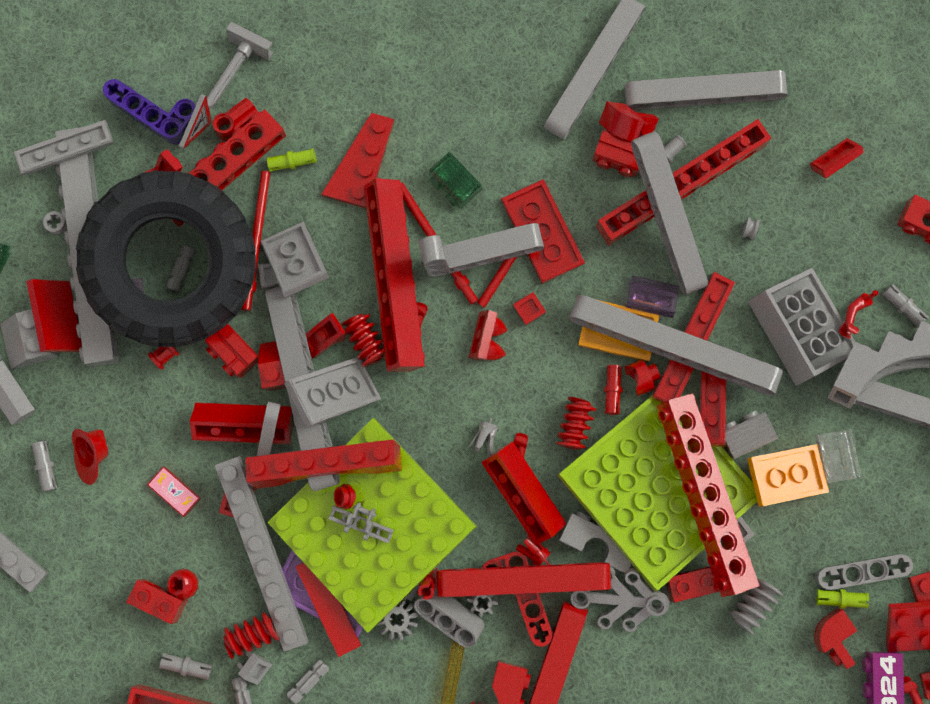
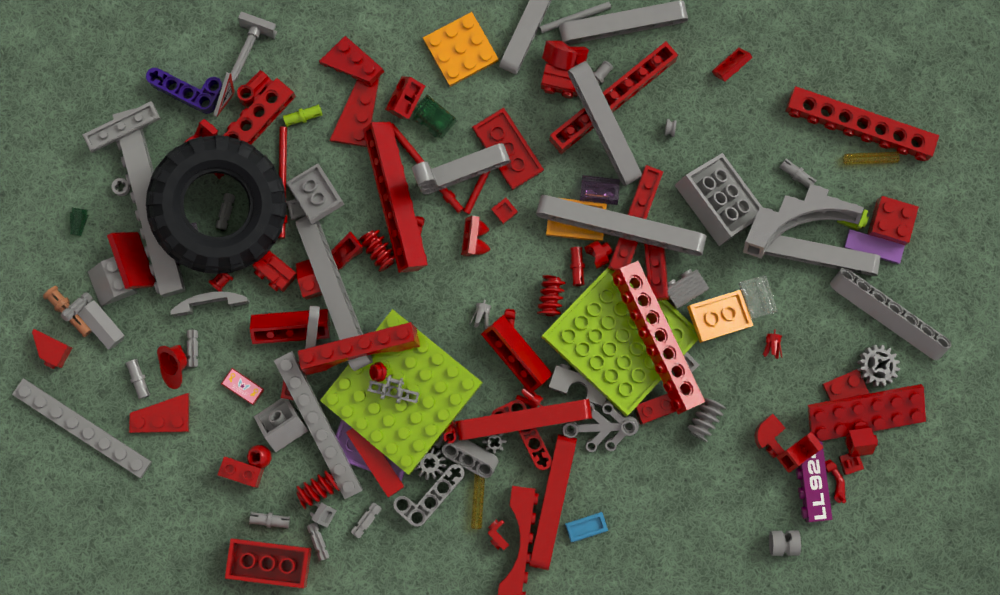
camera: 10 degrees left, 0 degrees up
(69, 518) = (162, 417): none -> red wing
(116, 382) = (185, 307): none -> light grey slope
(117, 435) = (192, 348): none -> light grey axle
(214, 546) = (280, 424): none -> light grey slope
(332, 391) = (358, 292): light grey tile -> none
(360, 97) = (350, 59): none -> red wing
(397, 658) = (433, 492): none -> light grey beam
(421, 152) = (405, 97): none -> red brick
(498, 100) = (460, 49): none -> light orange plate
(651, 75) = (580, 15): none -> light grey bar
(842, 599) = (772, 406): lime pin -> none
(855, 514) = (773, 341): none -> red piece
(861, 302) = (762, 176): red piece -> none
(863, 570) = (787, 383): light grey beam -> none
(874, 665) = (800, 452): none -> red brick

